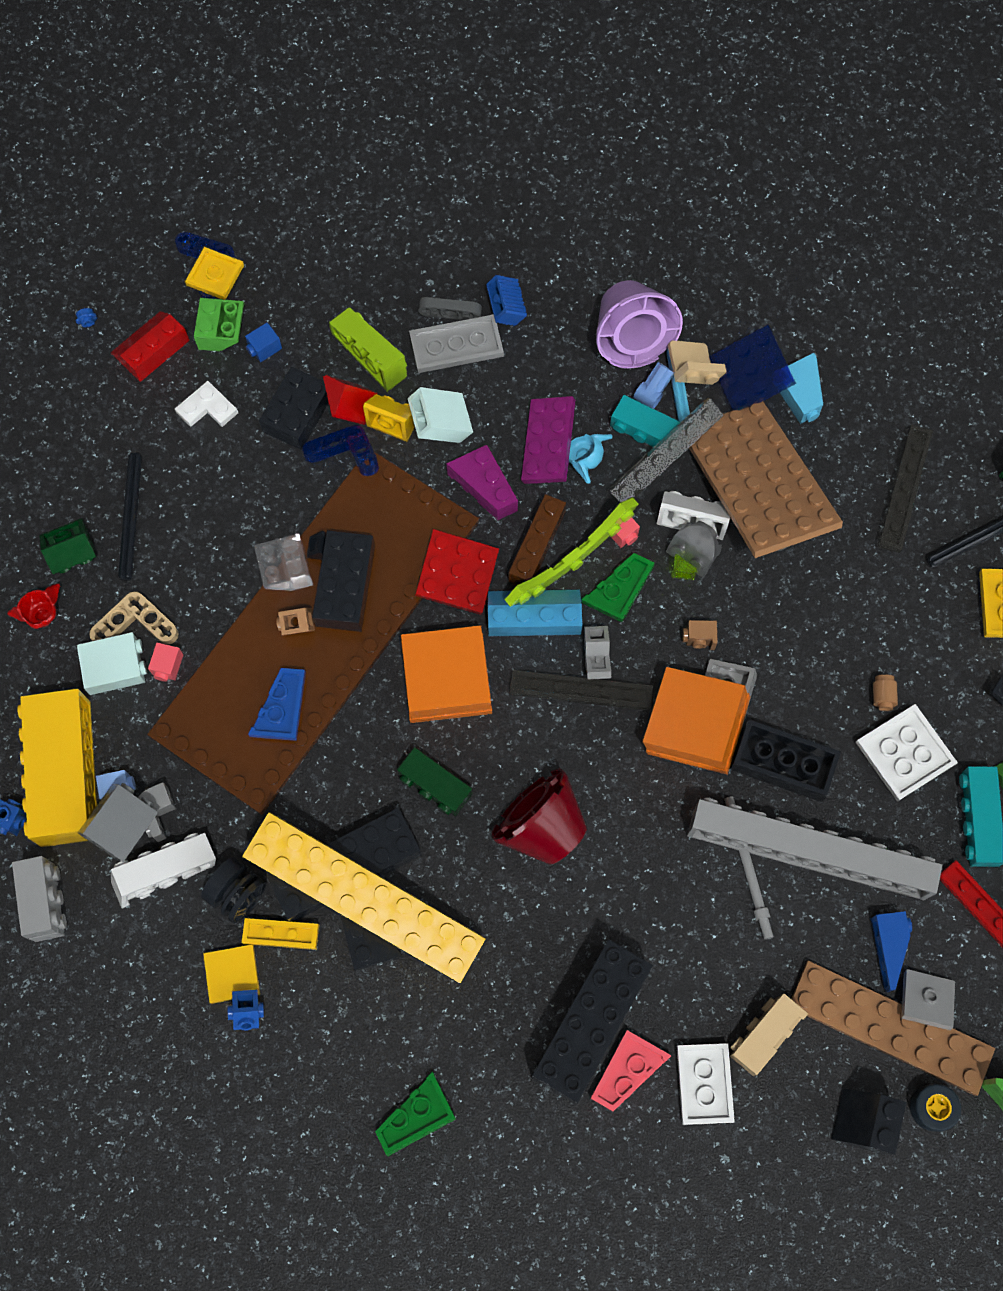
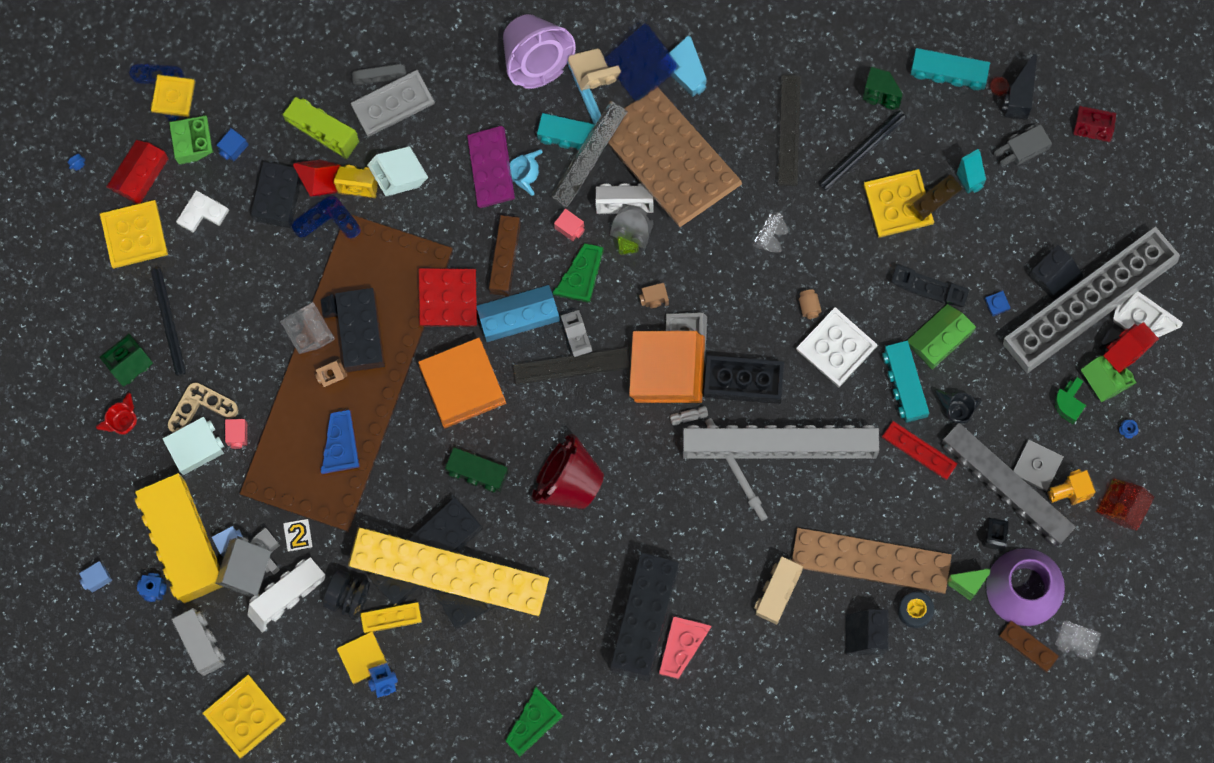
camera: 10 degrees left, 5 degrees up
(65, 1007) = (244, 716): none -> yellow plate
(123, 410) = (134, 234): none -> yellow plate
(200, 802) = (297, 535): none -> sticker
(484, 480) = (448, 215): magenta wedge -> none
(506, 300) = (424, 55): blue brick -> none
(610, 527) = (538, 262): lime plate -> none
(651, 390) = (563, 102): medium blue piece -> none
(705, 1084) = (741, 639): white plate -> none
(707, 786) = (689, 415): none -> light grey axle
(849, 602) = (765, 239): none -> clear tile
(891, 941) = (856, 494): blue slope -> none
(928, 999) = (893, 532): light grey plate -> none

